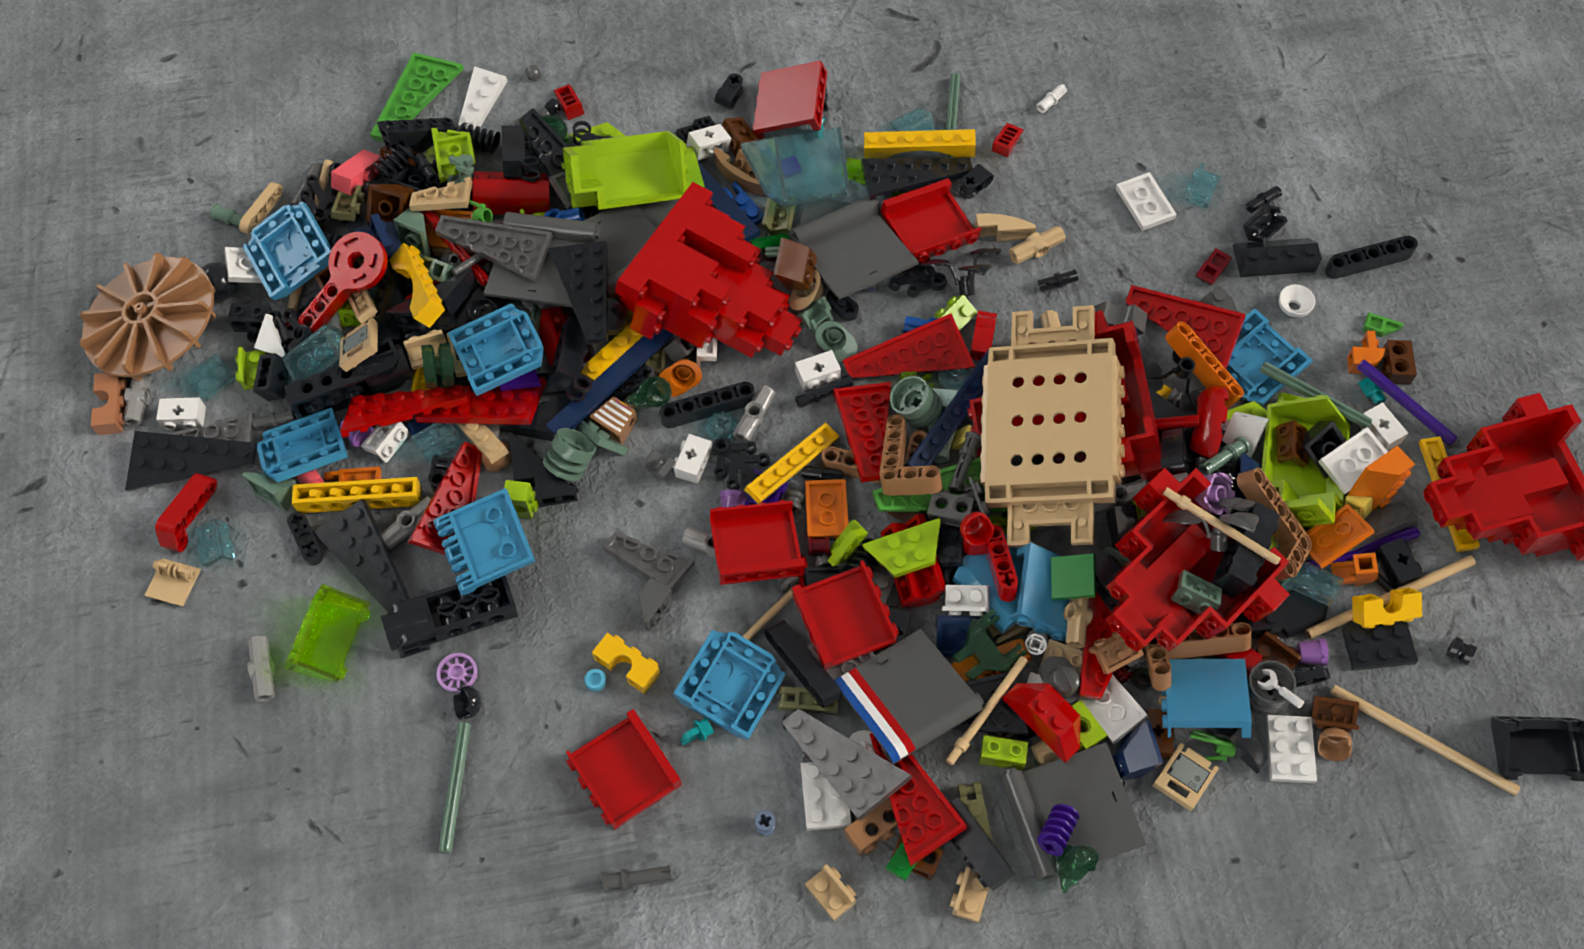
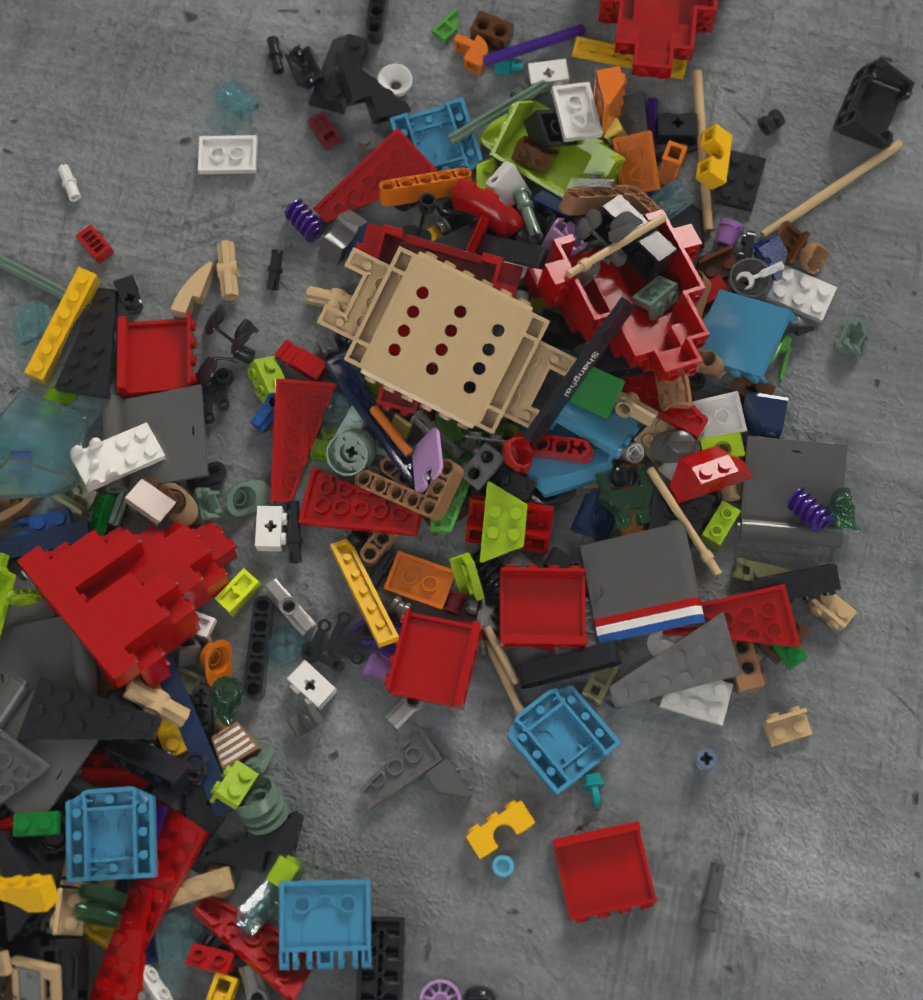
camera: 65 degrees left, 10 degrees up
(426, 471) = (210, 959): none -> red hinge
(477, 486) = (257, 909): none -> clear light blue bracket
(485, 290) = (36, 824): none -> green plate
(576, 423) = (235, 784): none -> lime bracket
(620, 335) = (156, 702): none -> tan piece
(667, 203) = (23, 597): none -> lime gear
(749, 368) = (238, 592): none -> neon yellow hinge
(785, 603) = (501, 655): none -> tan bar
(821, 223) = (116, 456): none -> white hinge
(838, 439) = (358, 538): none -> black bush
(933, 458) = (427, 456): none -> lavender piece
(950, 424) = (390, 429): none -> orange piece
(966, 598) = (573, 493): white bracket -> none
(1007, 643) = (624, 476): none -> black wheel
(1078, 541) = (579, 371): none -> black tile
(1117, 283) = (304, 221): none -> dark purple piece
(1189, 772) = (794, 382): container -> none
(1269, 275) = (362, 88): none -> black slope
(1269, 813) = (851, 337): none -> sand green piece
(1287, 496) = (594, 181): none -> clear smoke plate
(1313, 693) = (771, 251): none -> clear blue slope

